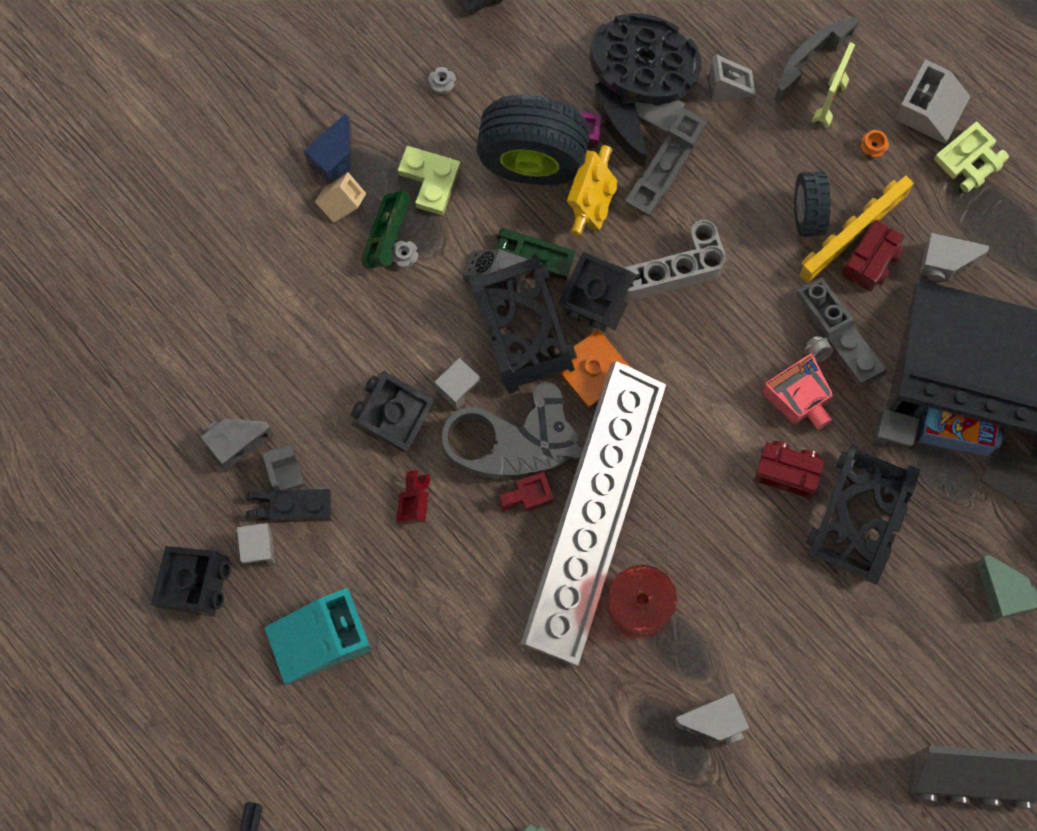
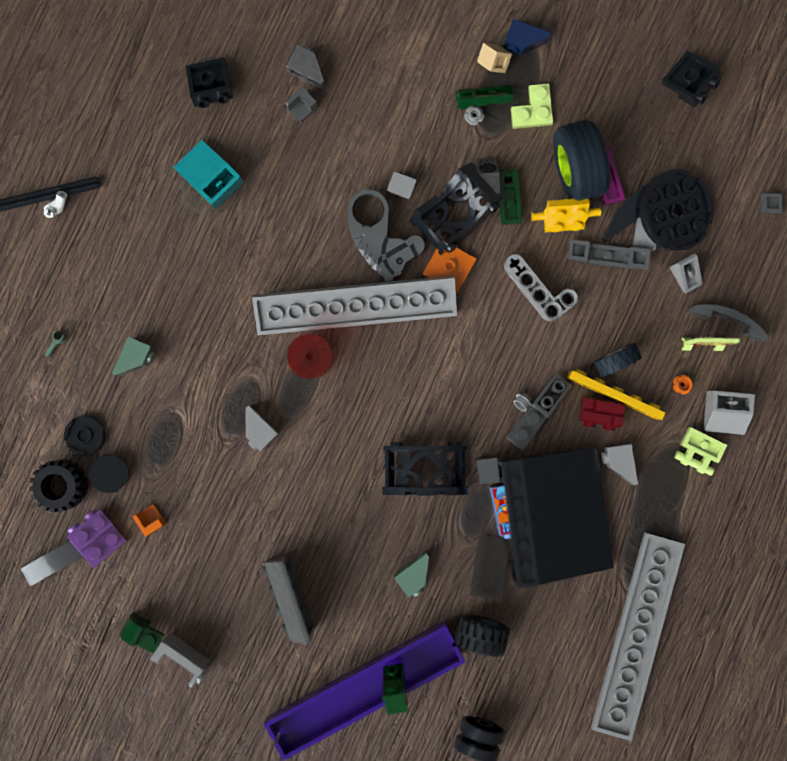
camera: 65 degrees right, 15 degrees up
(256, 544) = (247, 111): light grey panel -> none
(291, 505) = (283, 122): black hinge -> none
(391, 411) = (366, 154): black plate -> none
(413, 502) = (314, 193): dark red plate -> none
(445, 86) = (605, 90): light grey plate -> none
(530, 491) = (351, 262): dark red plate -> none
(597, 292) = (497, 247): black plate -> none
(789, 469) = (434, 413): dark red brick -> none
(801, 393) = (487, 402): coral torso -> none

